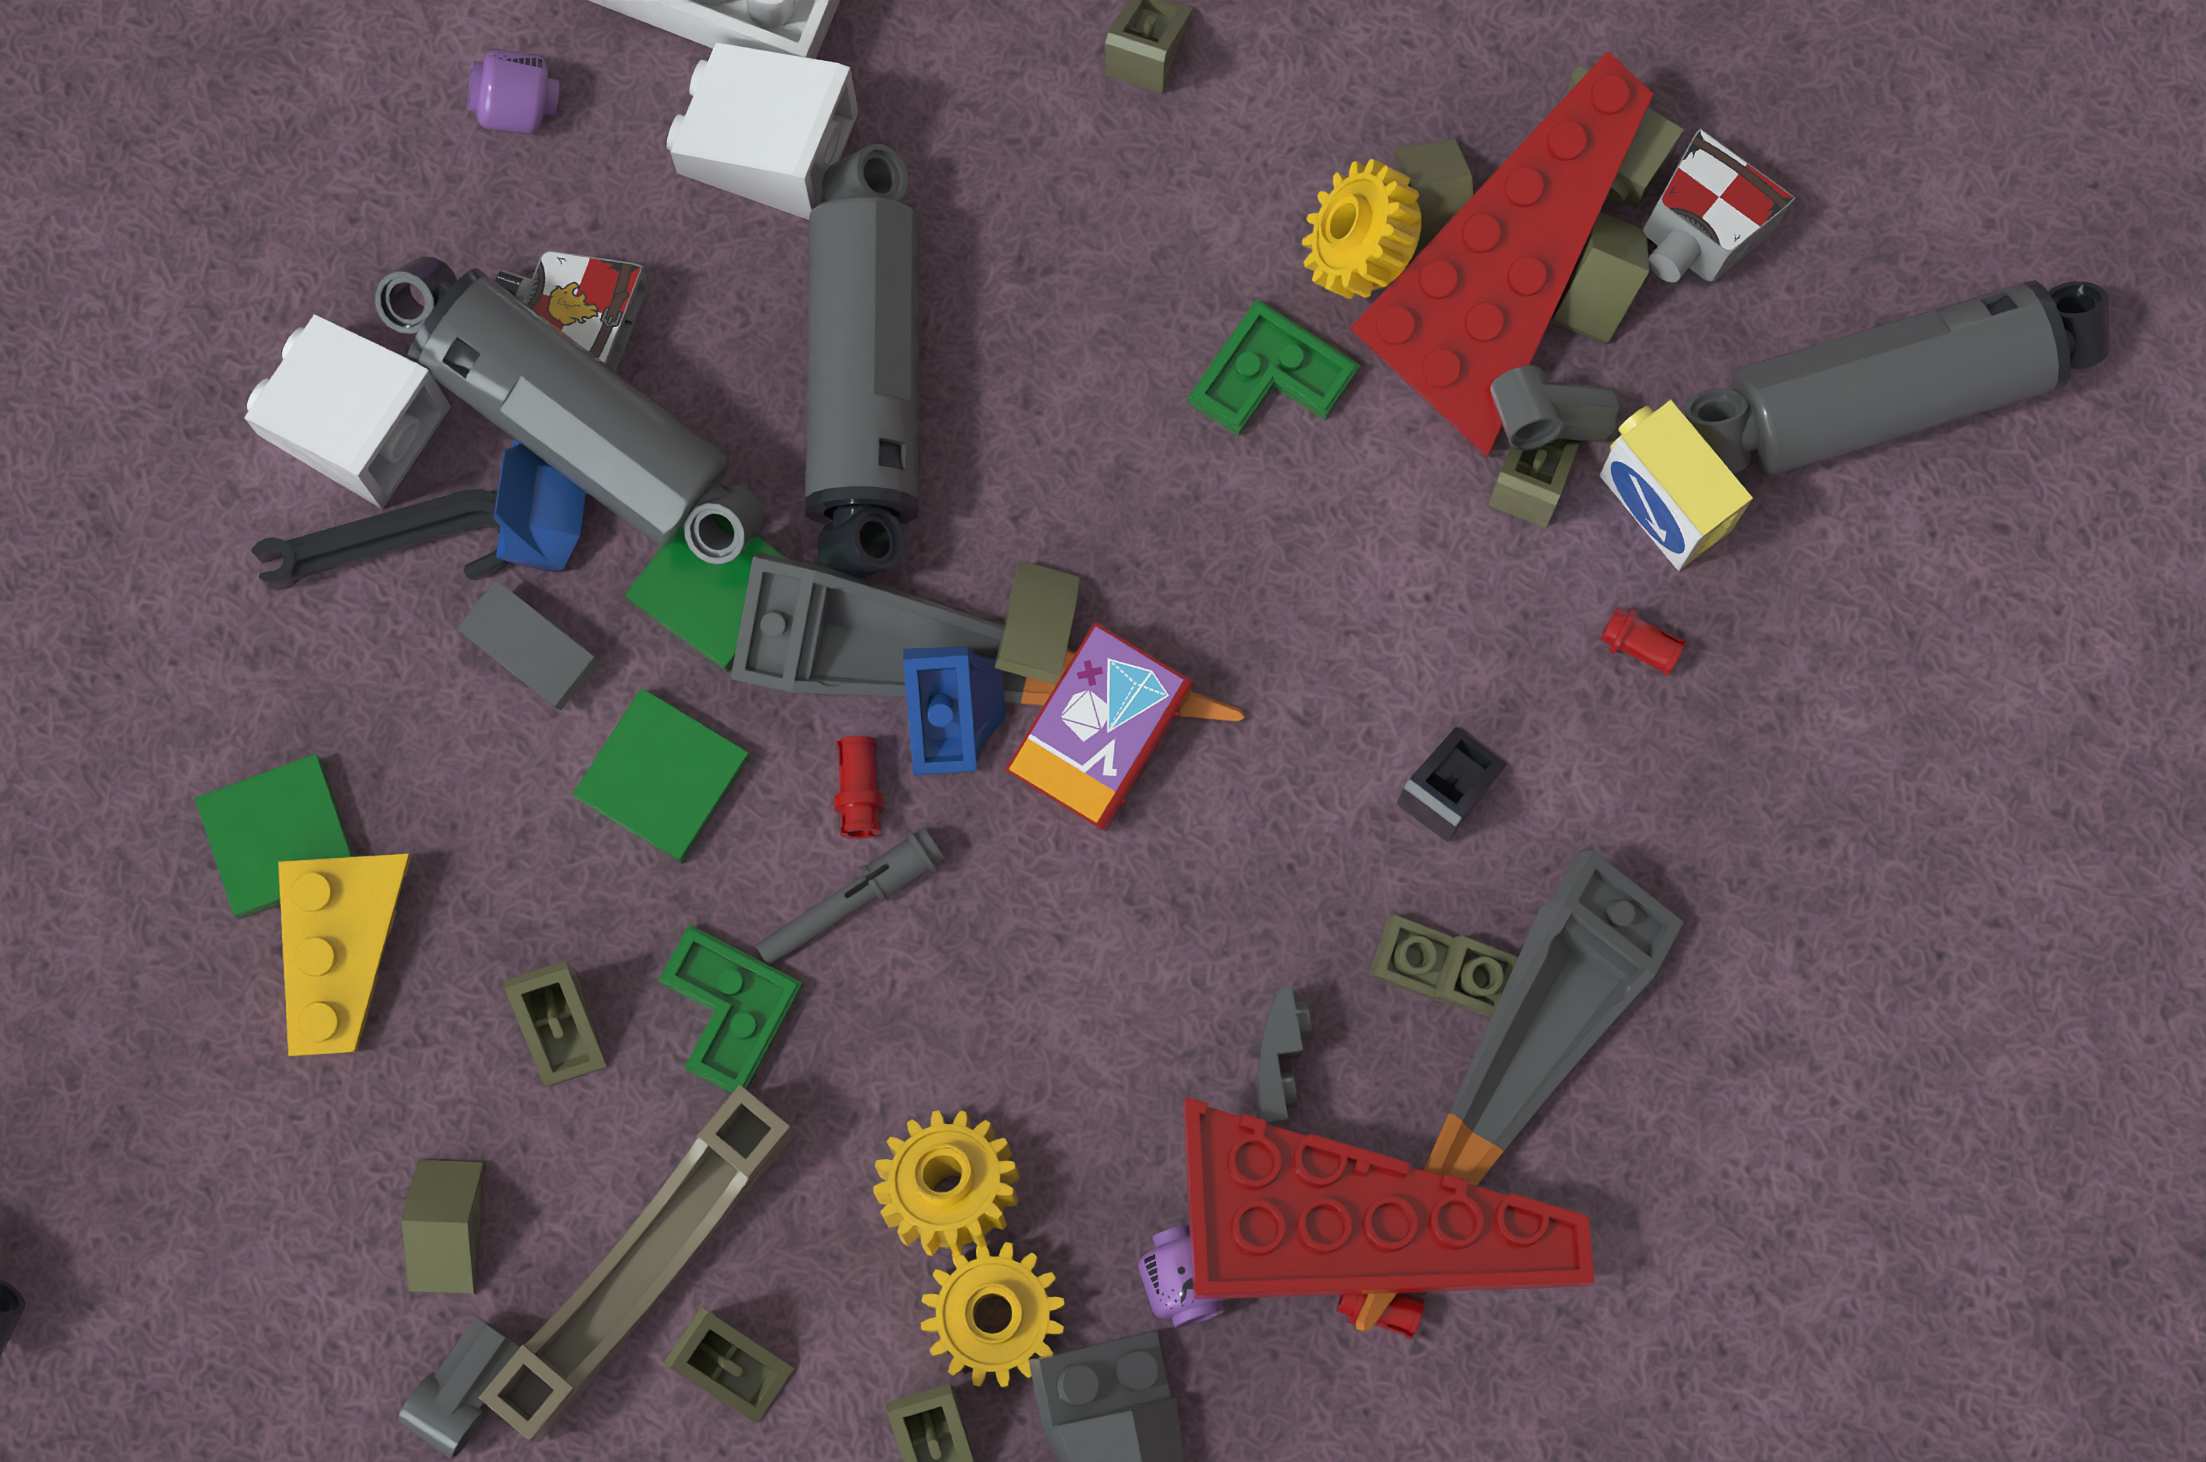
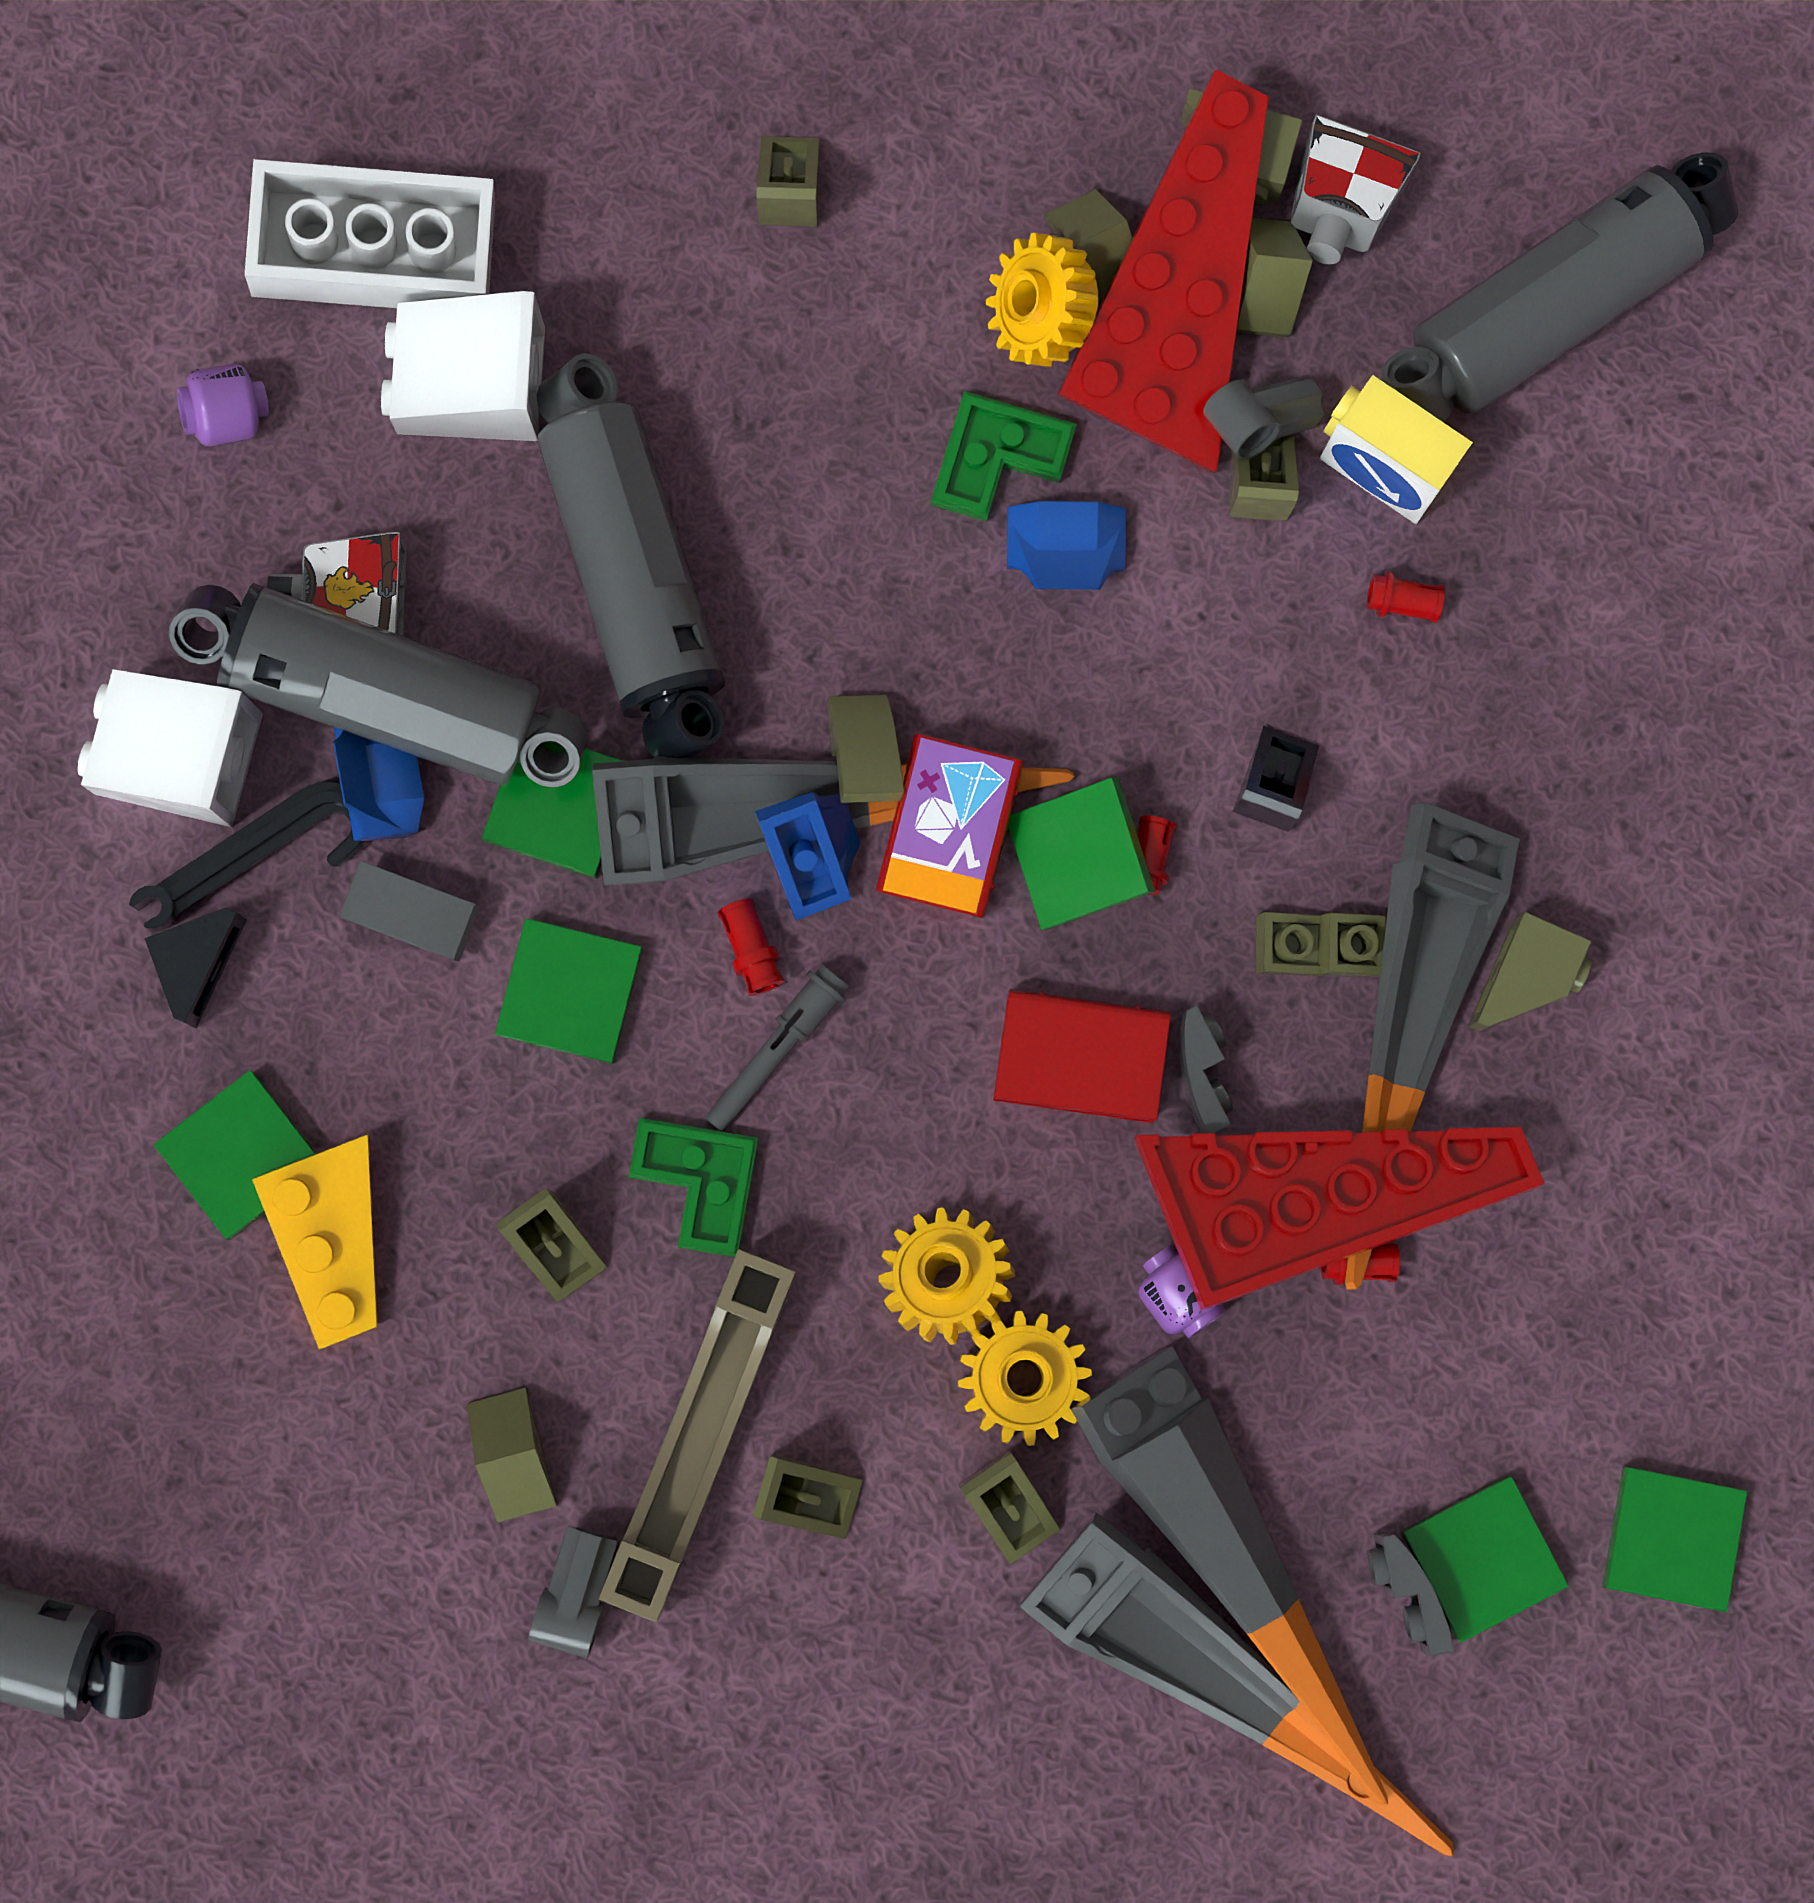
camera: 25 degrees left, 5 degrees up
(296, 626) = (193, 959): none -> black slope
(1159, 1003) = (1082, 1056): none -> red piece
(1223, 796) = (1080, 854): none -> green tile
(1295, 821) = (1156, 844): none -> red pin
(1312, 480) = (1066, 543): none -> blue slope
(1654, 1063) = (1531, 971): none -> olive slope

